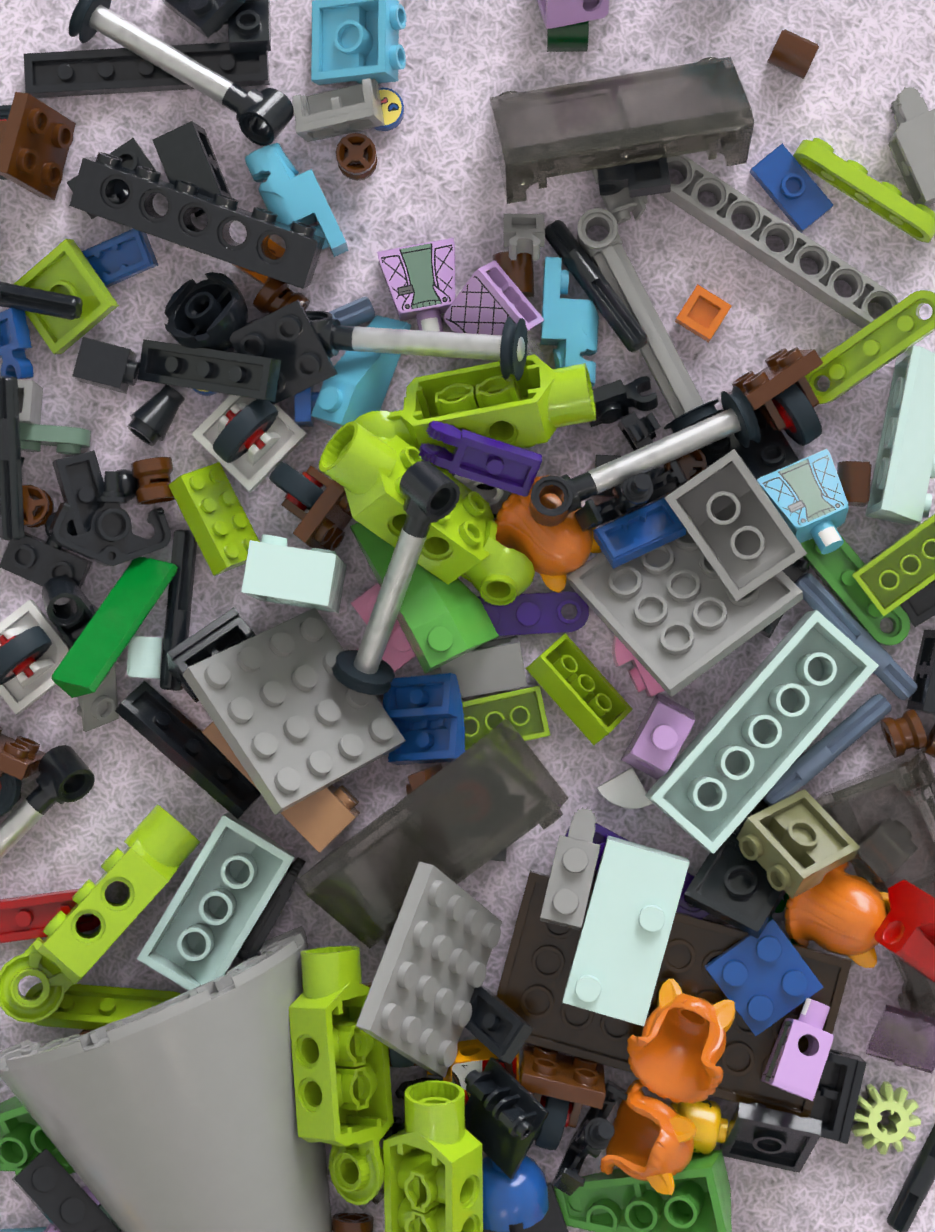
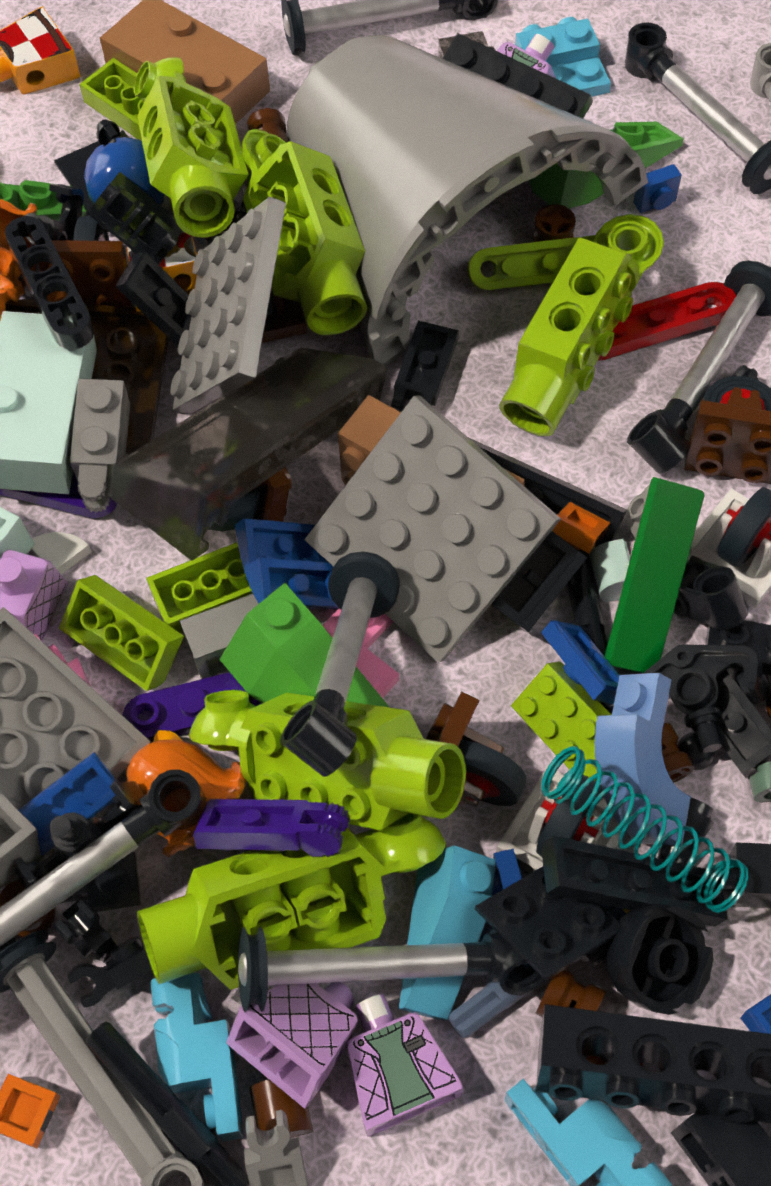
camera: 170 degrees right, 25 degrees down
(162, 696) = (580, 527): none -> orange plate
(182, 464) = (632, 749): none -> medium blue arch
(193, 565) = (583, 660): none -> blue plate
(216, 904) = (468, 348): light aqua slope -> none
(236, 423) = (569, 784): none -> teal piece
(293, 575) = (464, 642): light aqua brick -> none
(594, 1043) = (49, 281): none -> black beam

